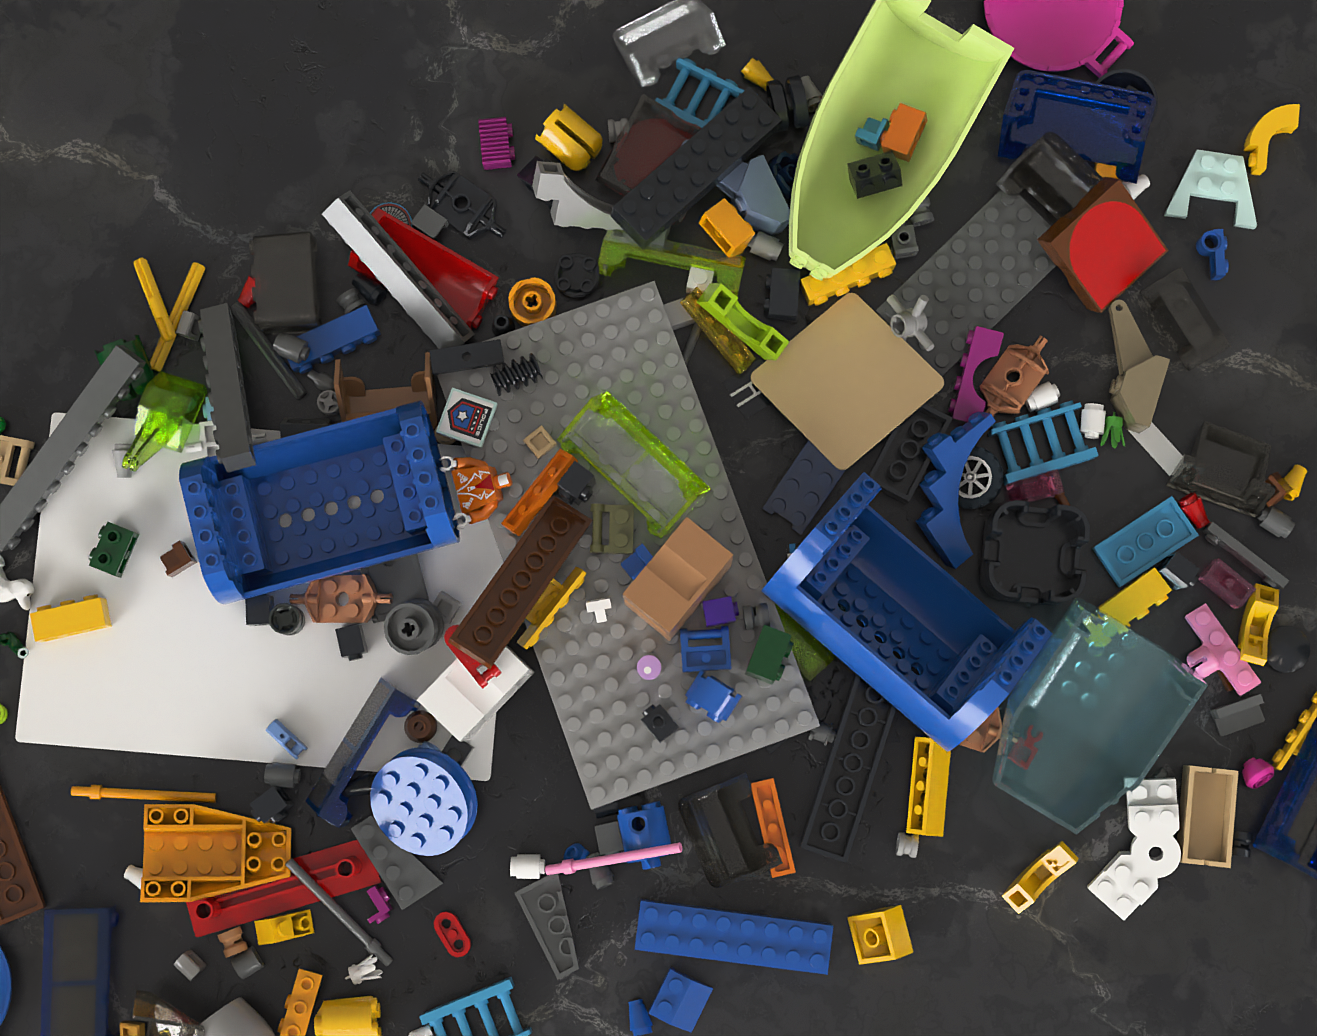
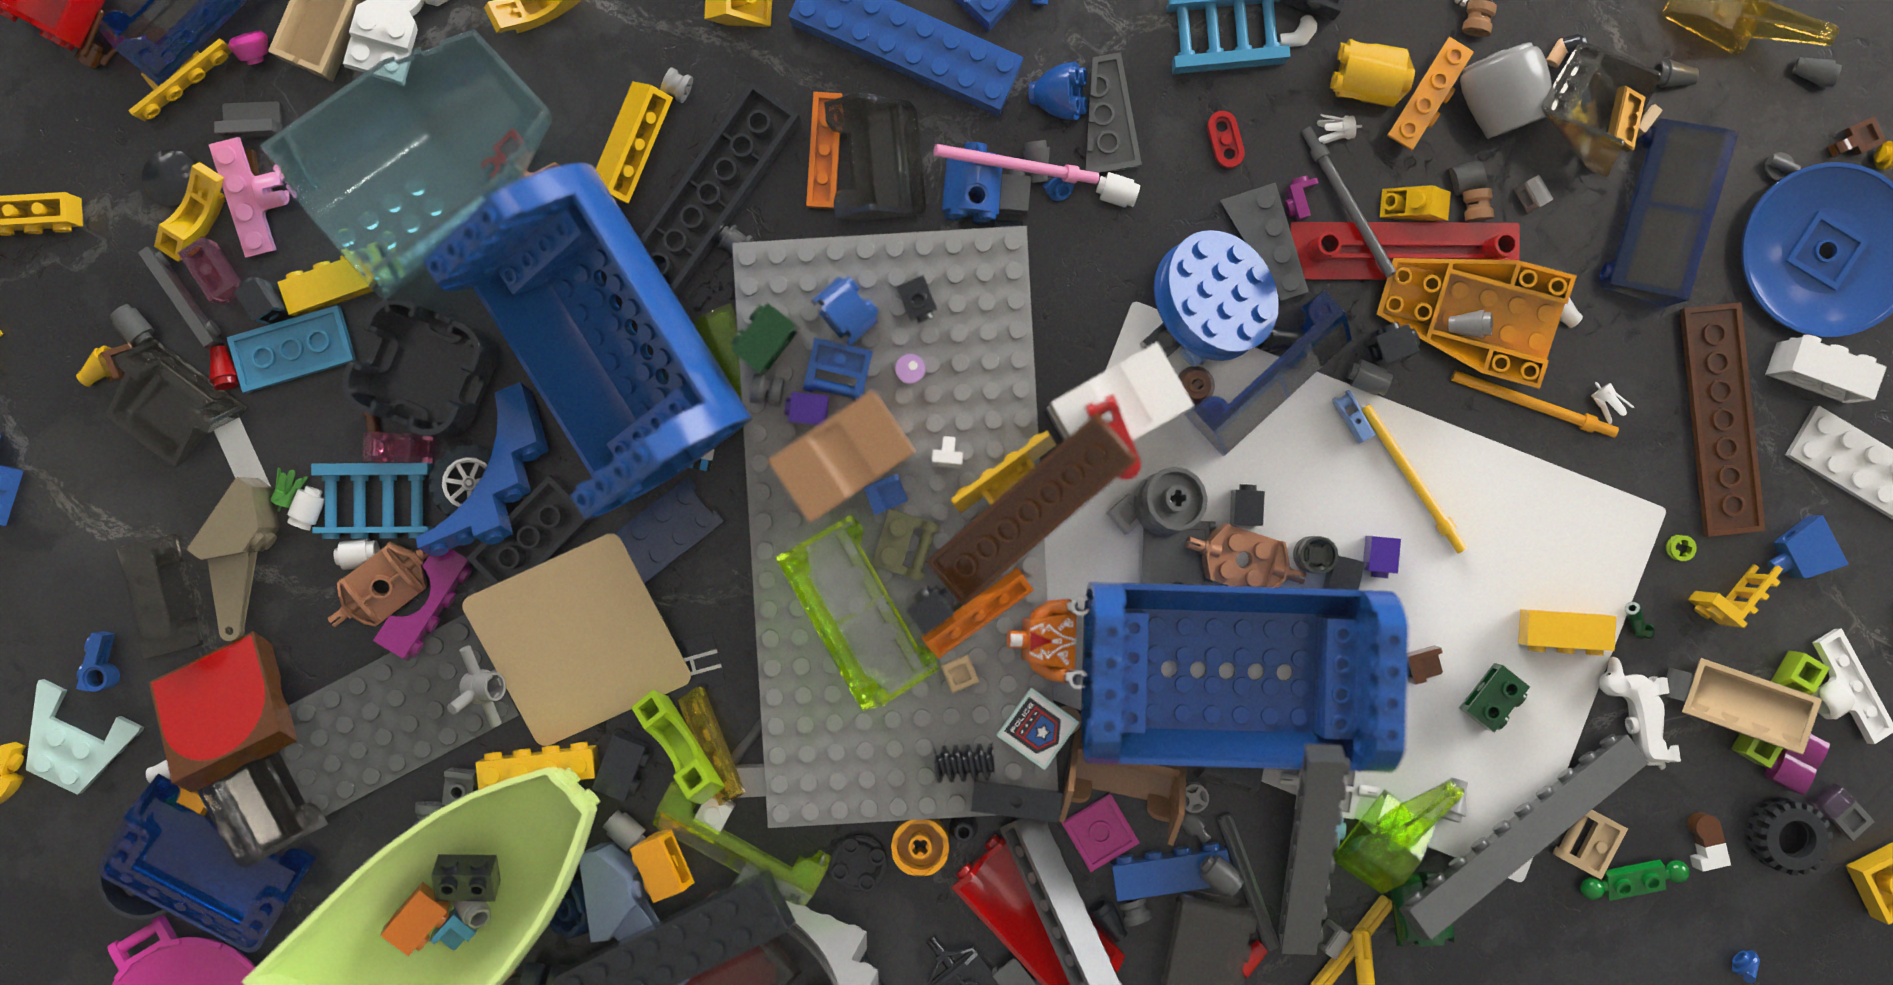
camera: 165 degrees left, 5 degrees up
(86, 818) = (1608, 394): none -> white piece
(190, 674) = (1444, 525): none -> yellow bar
(211, 841) = (1472, 324): none -> light grey cone
(234, 634) = (1381, 555): none -> dark purple brick
(395, 354) = (1100, 832): none -> dark pink tile
(596, 932) = (1061, 91): none -> blue piece
(861, 149) = (473, 913): none -> light grey brick

